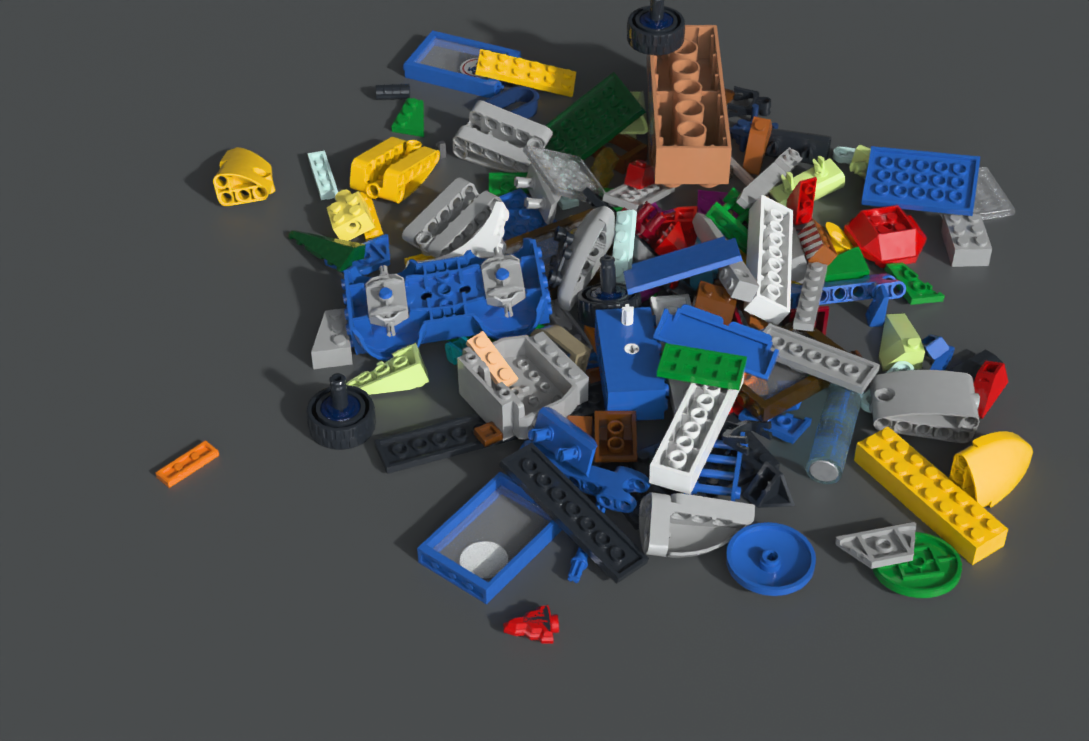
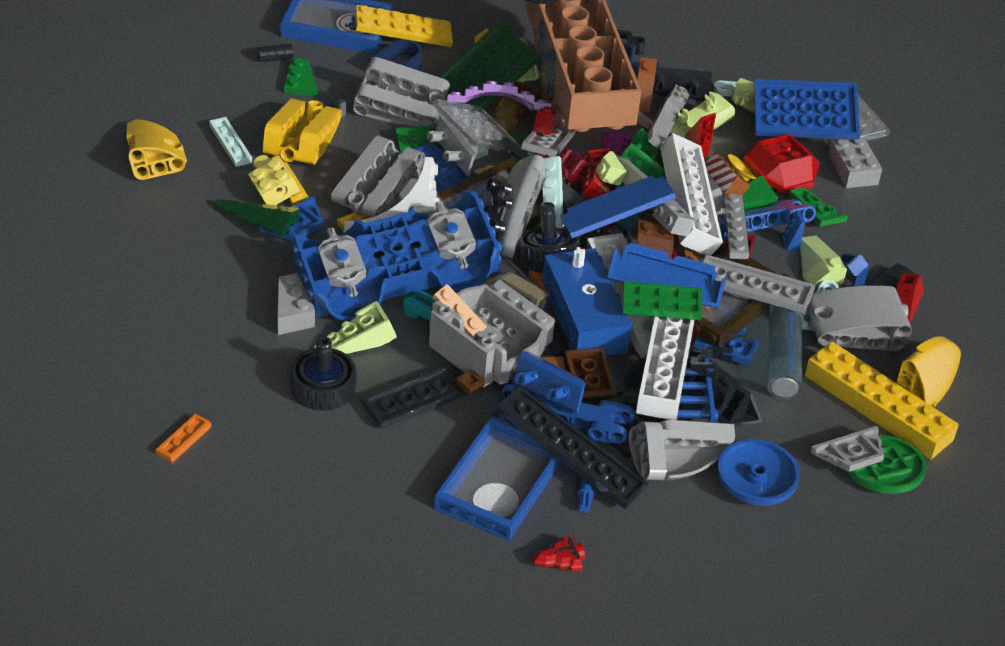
camera: 15 degrees left, 0 degrees up
(589, 138) = (506, 90): none -> medium lavender piece
(690, 227) = (611, 169): none -> yellowish green slope

